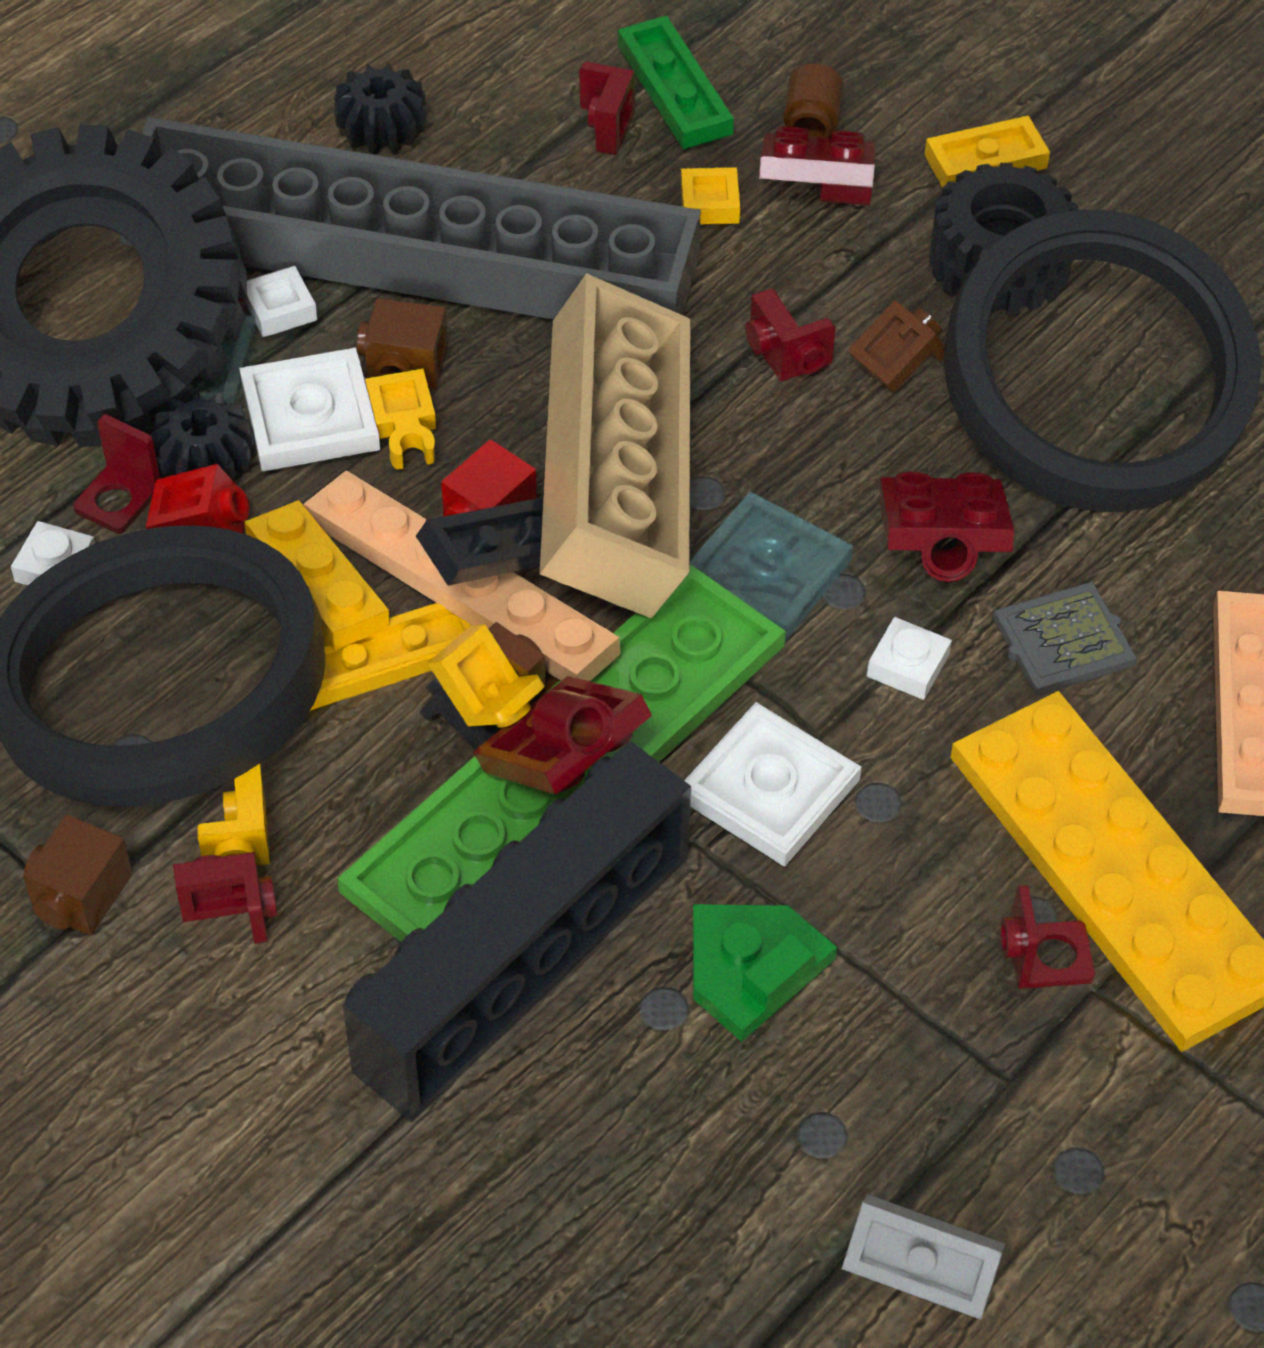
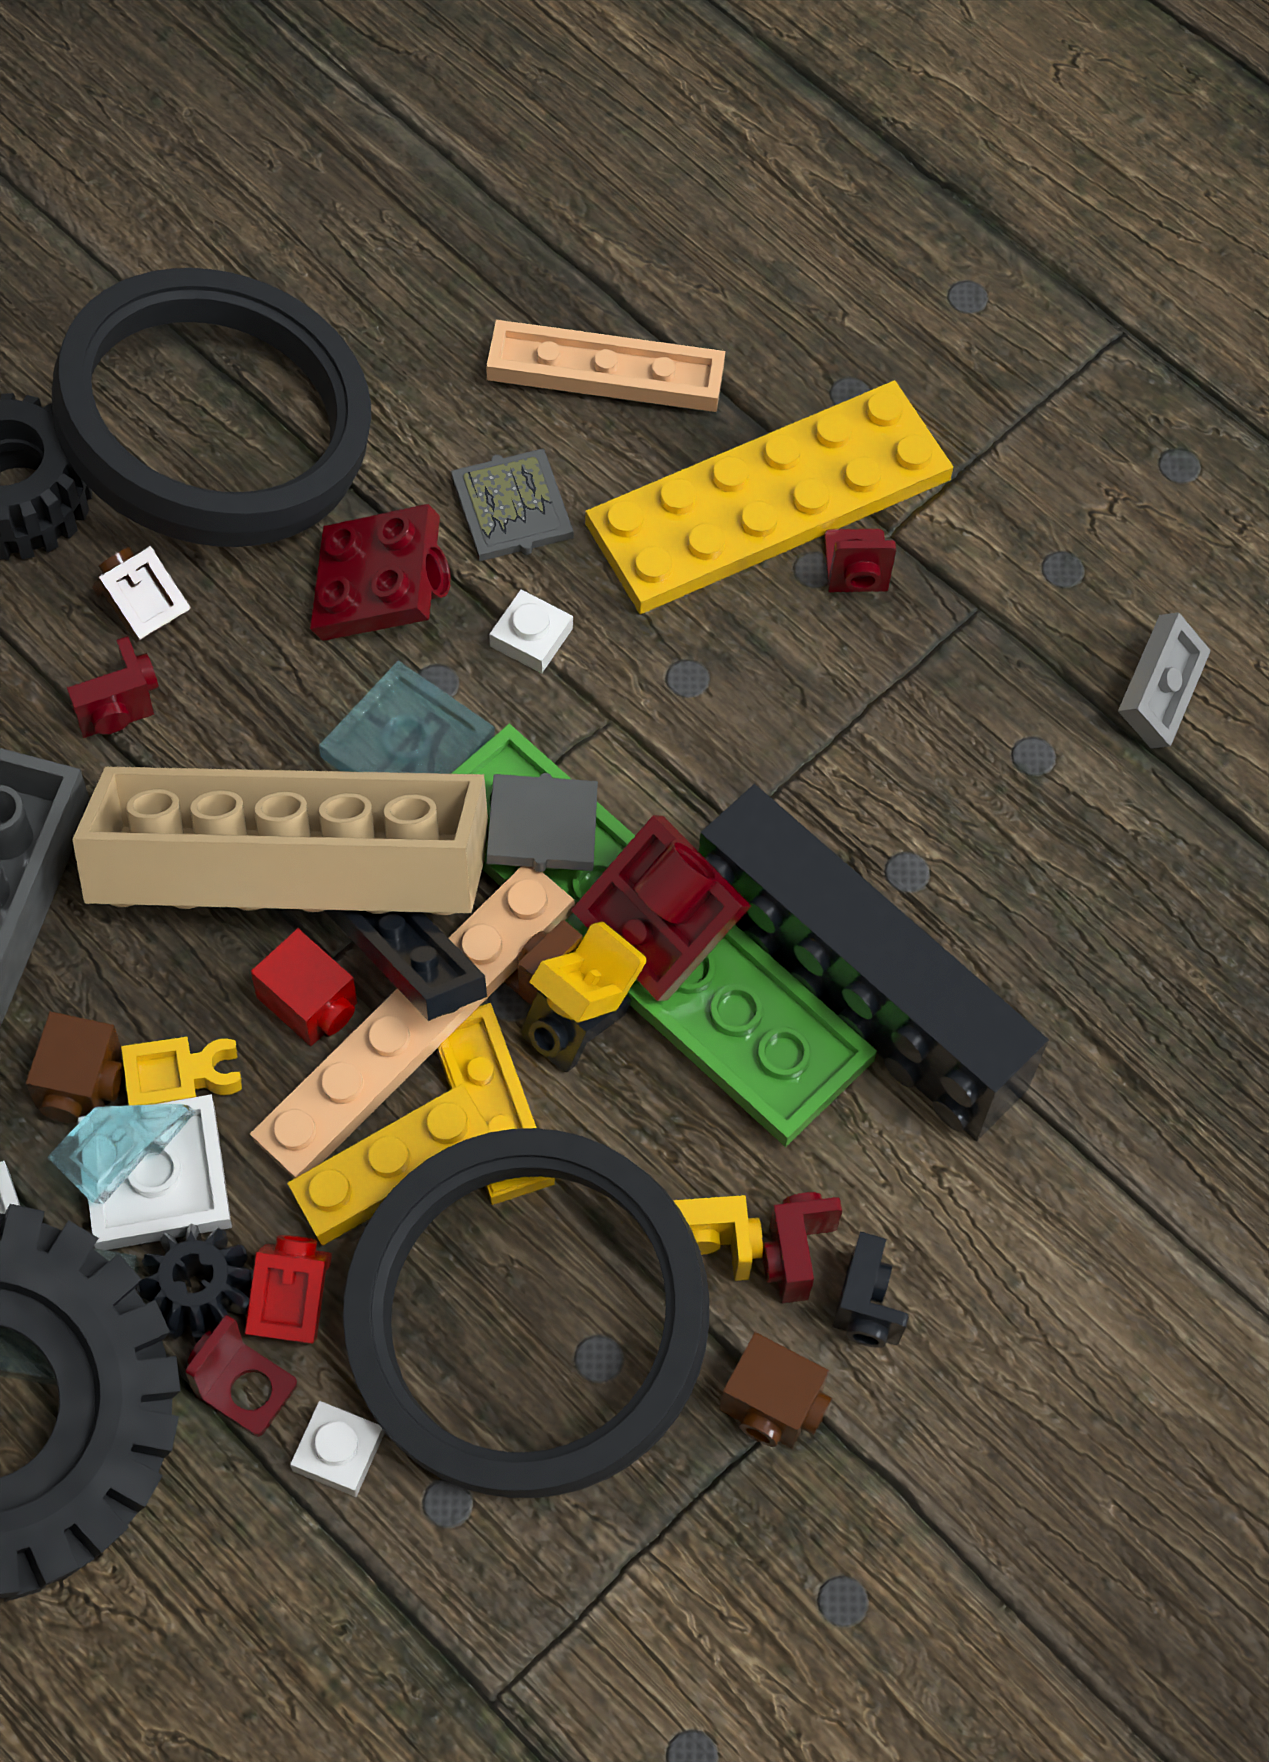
camera: 90 degrees left, 10 degrees up
(177, 945) = (866, 1282): none -> black bracket
(322, 359) = (113, 1143): none -> clear light blue slope
(664, 650) = (542, 822): none -> dark grey piece
(753, 961) = (871, 789): green plate -> none
(771, 783) = (678, 757): white plate -> none

